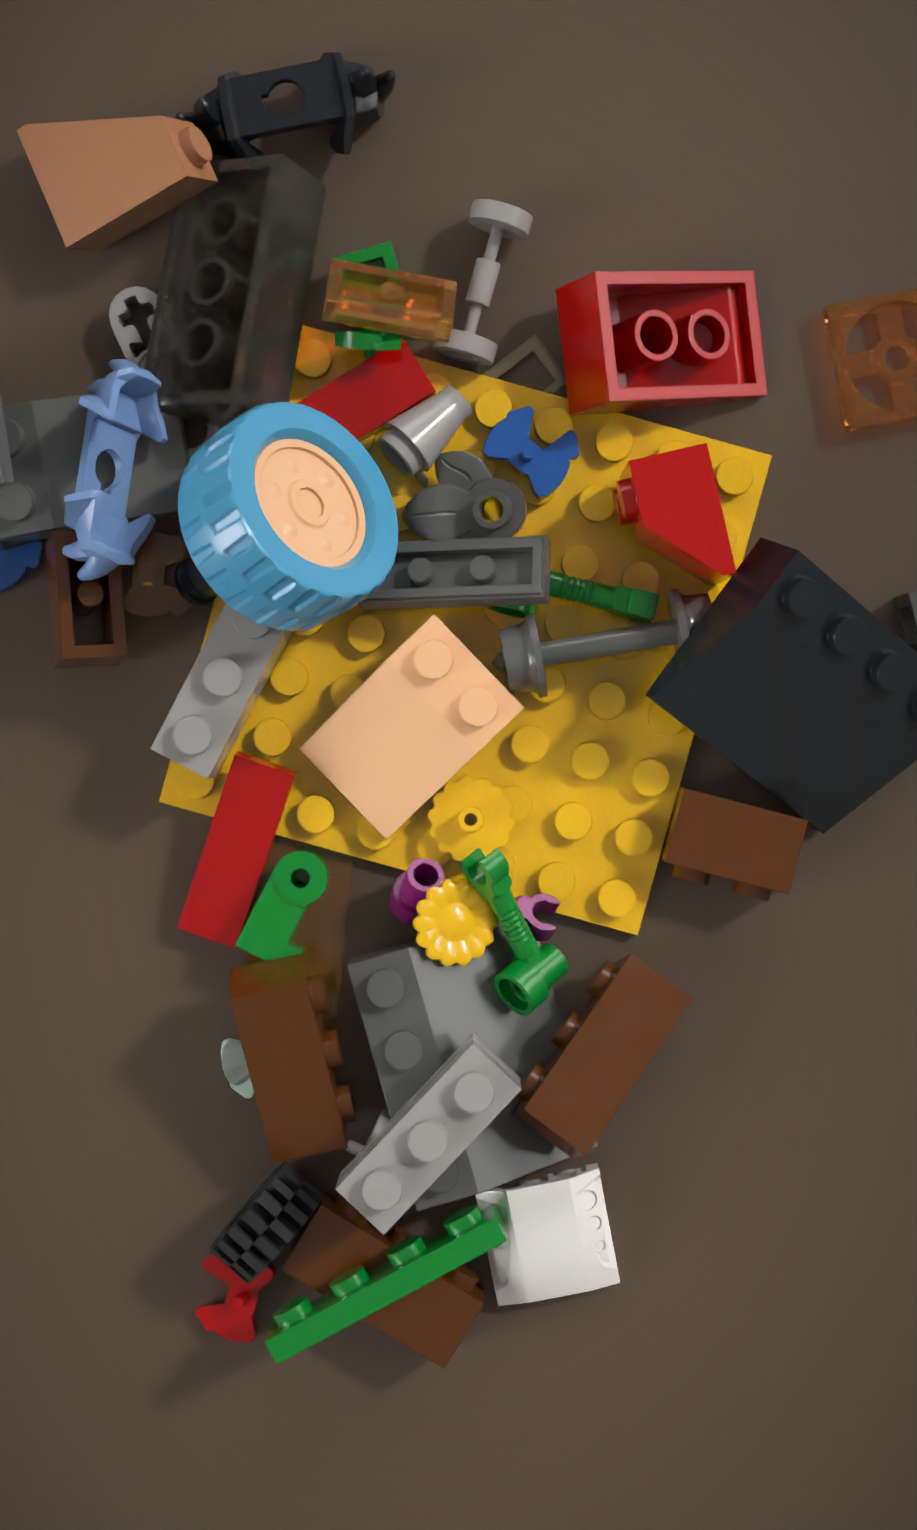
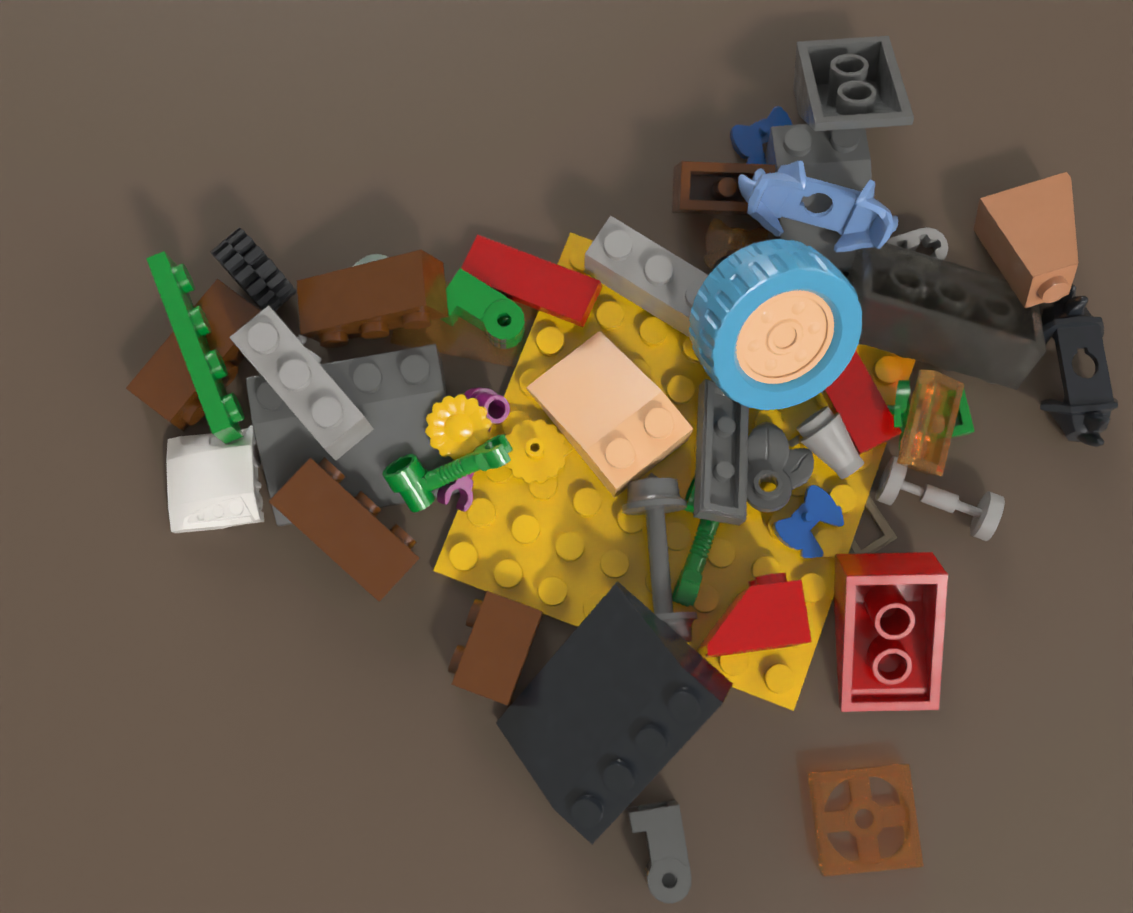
camera: 95 degrees right, 10 degrees down
(234, 1316) = (189, 249): red piece -> none

